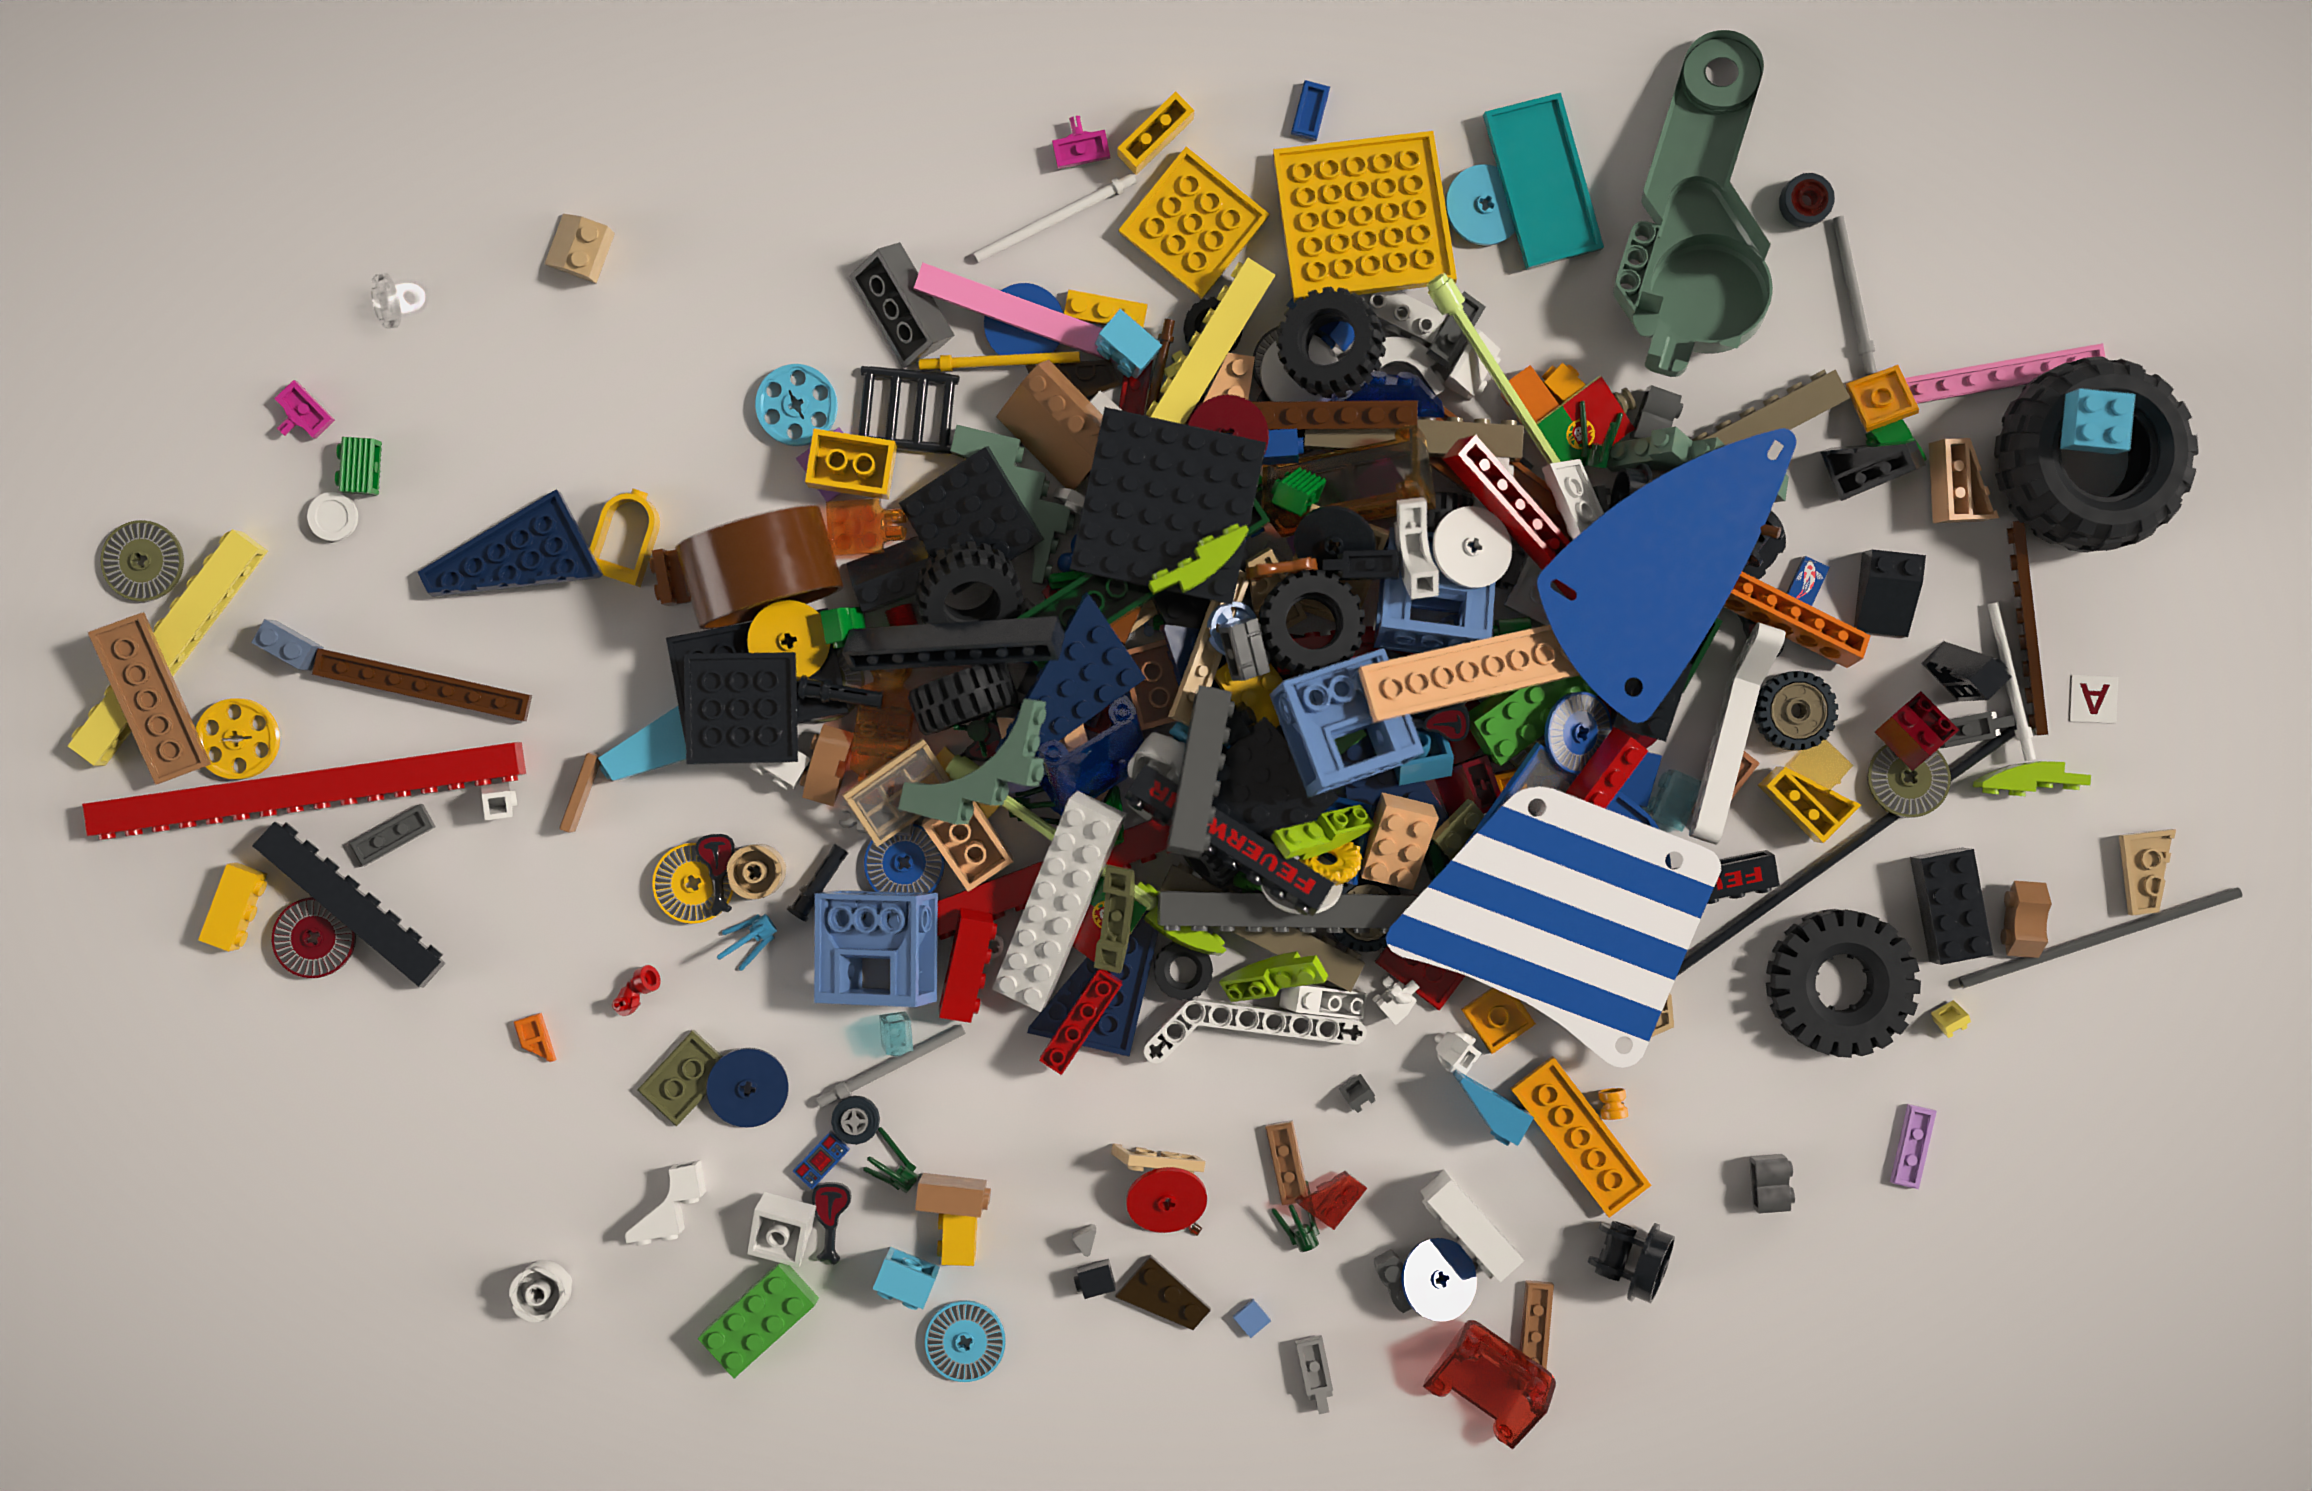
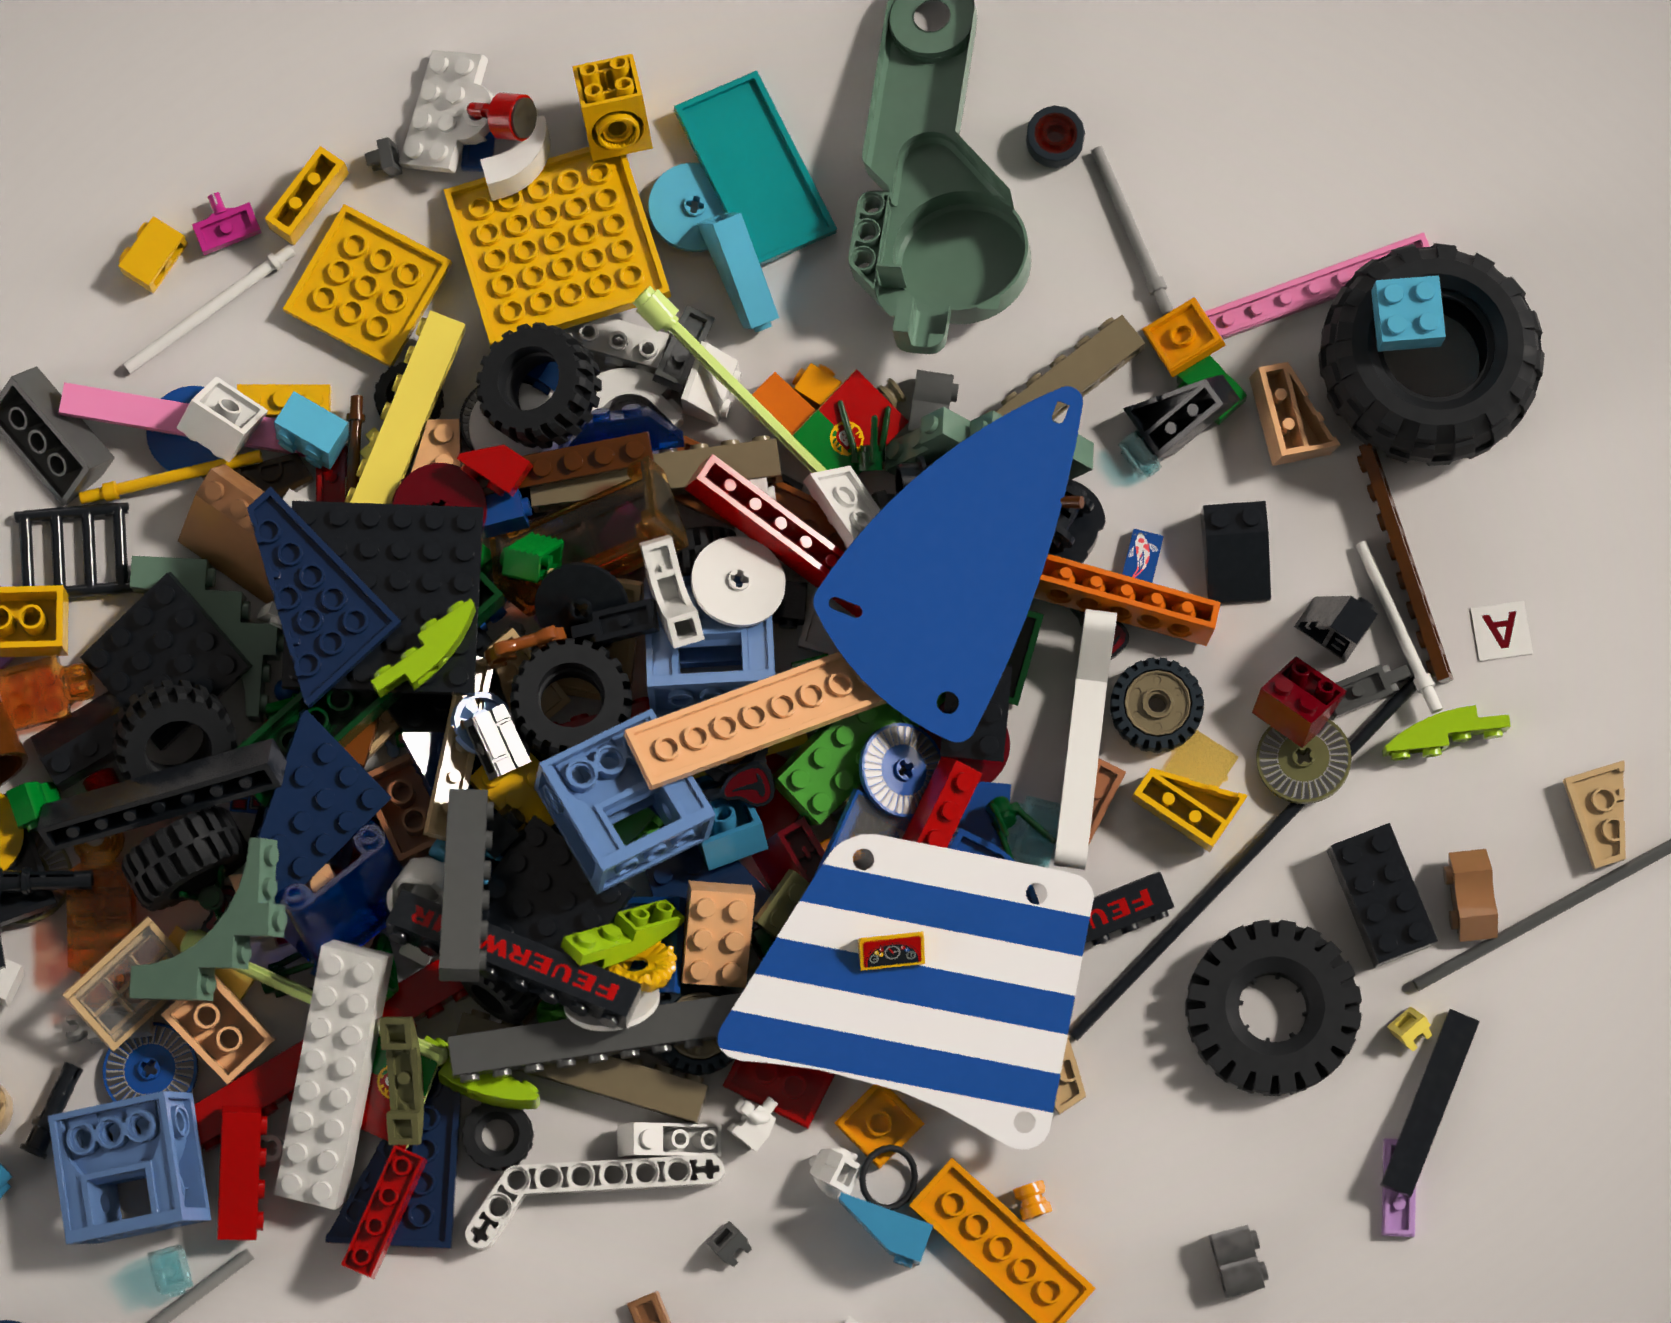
camera: 15 degrees left, 10 degrees down
(827, 765) = (42, 971): medium nougat brick -> none
(1013, 160) = (152, 254): none -> yellow brick
(1052, 319) = (221, 419): none -> white slope
(1116, 503) = (321, 603): none -> dark blue wing
(1227, 111) = (385, 157): none -> dark grey tile
(1269, 975) = (600, 1119): lime slope -> none
(1285, 408) = (497, 465): none -> red slope
(1300, 82) = (459, 112): none -> white plate
(1343, 141) = (519, 165): none -> white arch
(1435, 103) = (612, 107): none -> yellow brick
(1486, 1050) = (914, 1173): none -> black piece
(1516, 267) = (739, 269): none -> medium azure slope
(1546, 888) = (891, 951): none -> slope
(1652, 784) = (1004, 817): none -> dark green plant
(1824, 493) = (1139, 455): none -> clear light blue brick
(1954, 1083) = (1429, 1103): none -> black tile

